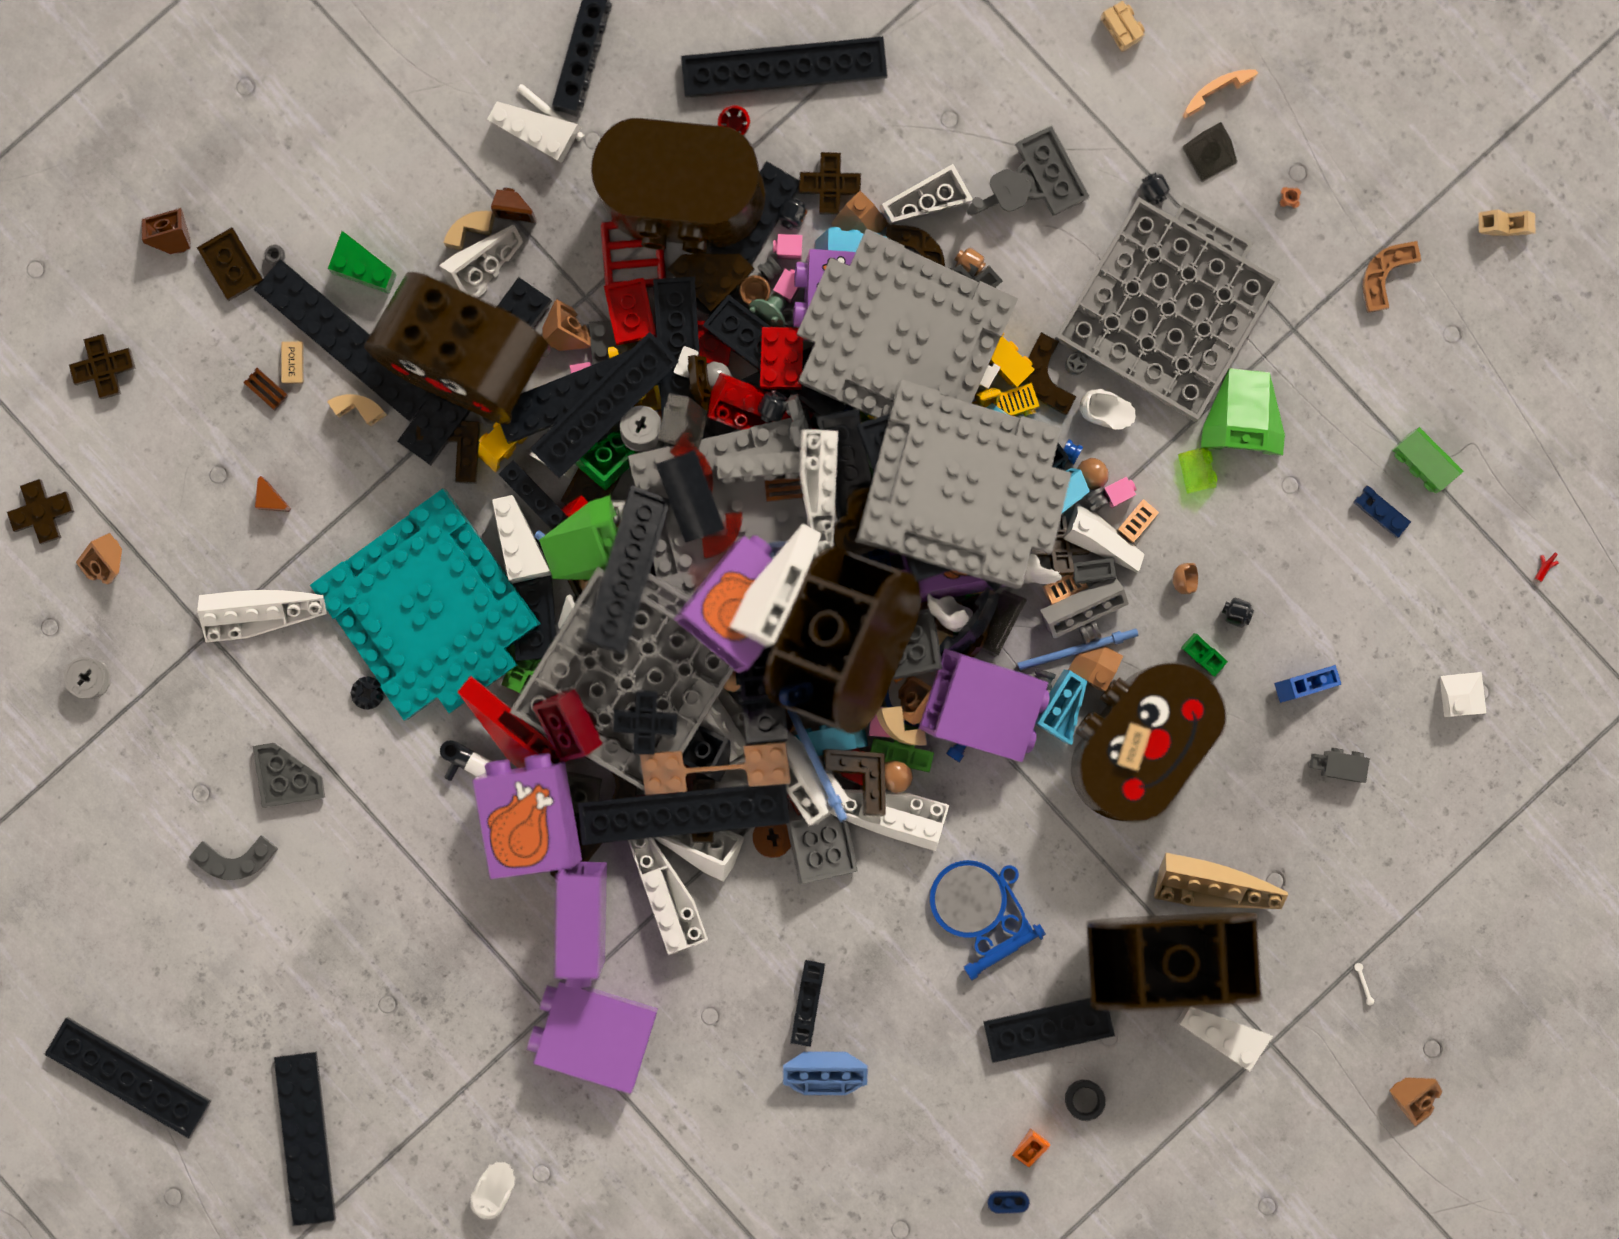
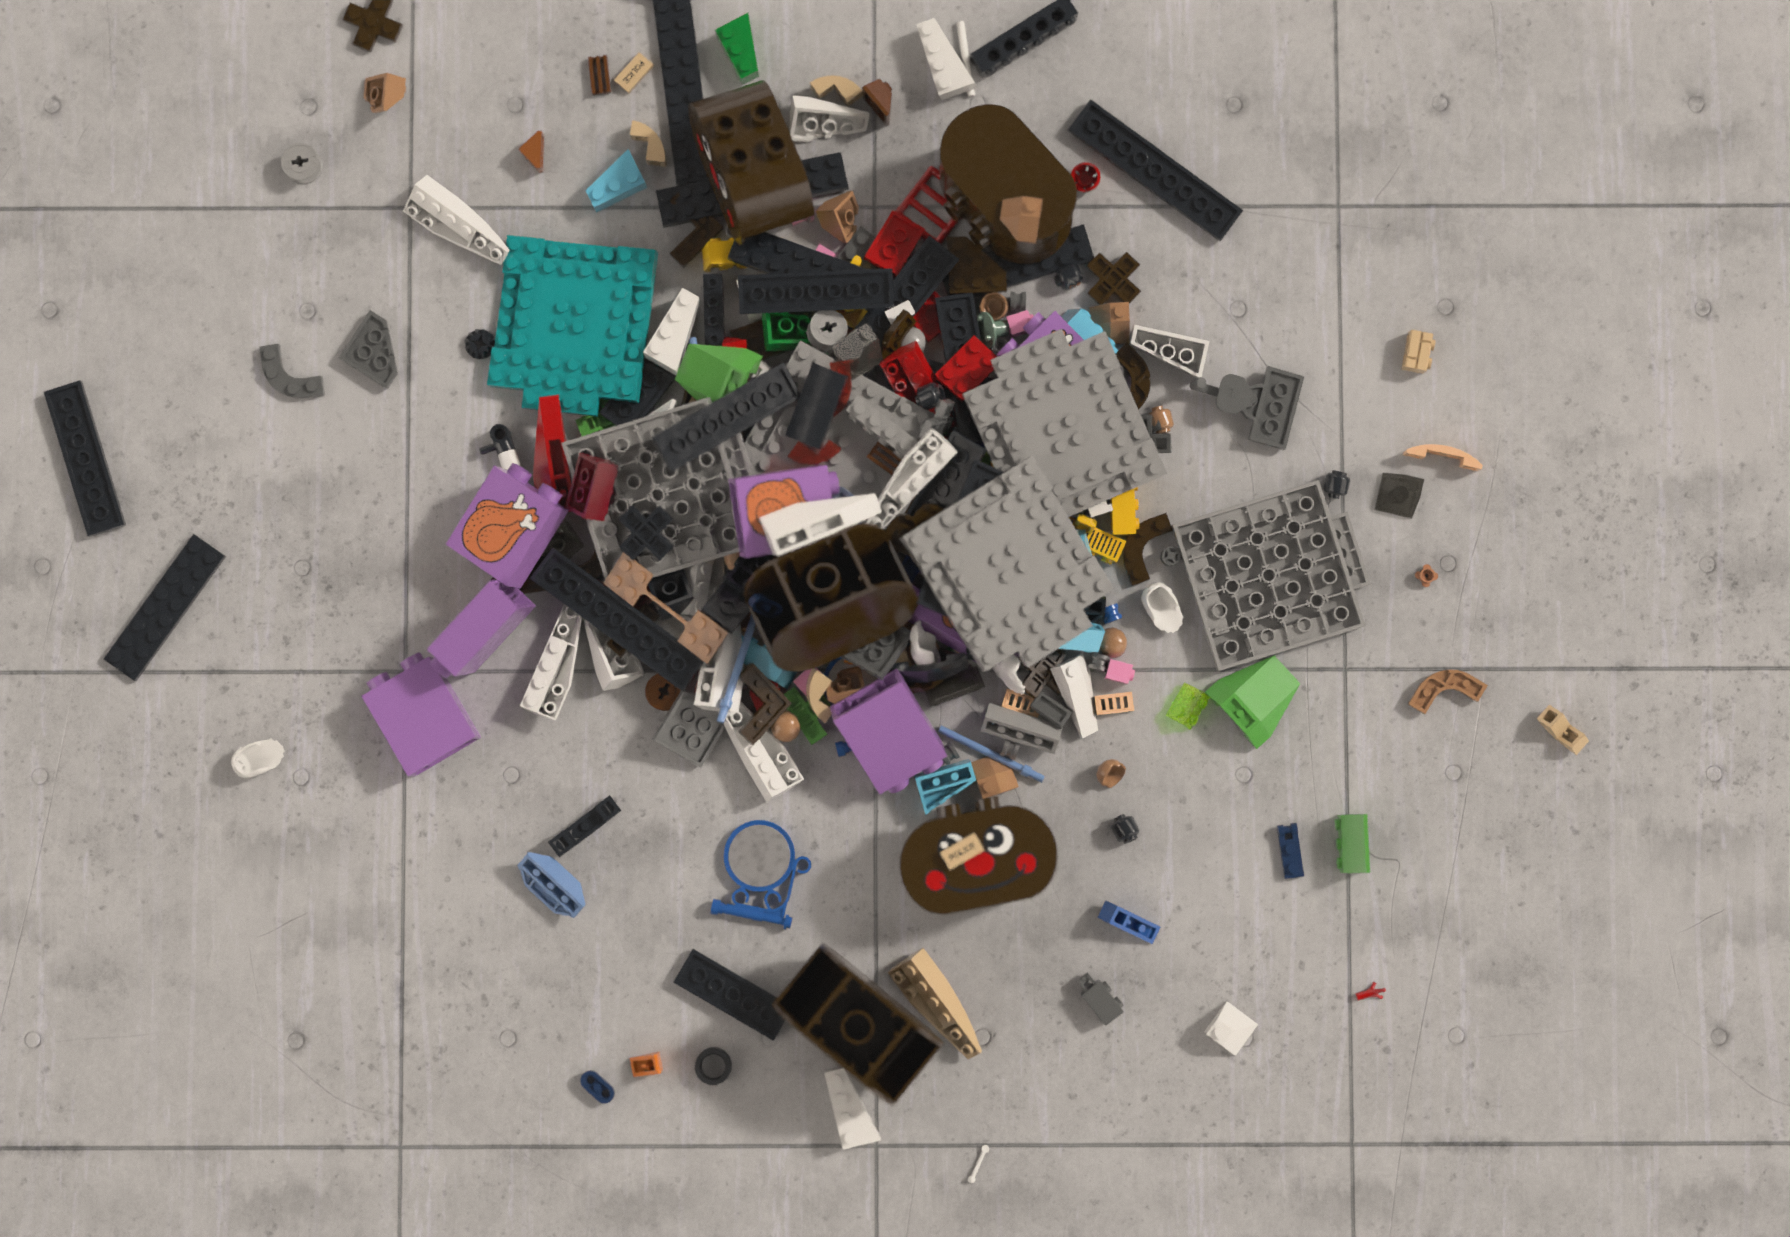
camera: 45 degrees right, 0 degrees up
(360, 463) = (616, 183): none -> medium azure wedge
(720, 195) = (1022, 217): none -> medium nougat slope
(788, 246) = (1044, 297): bright pink brick -> none
(1204, 655) = (1075, 837): green slope -> none

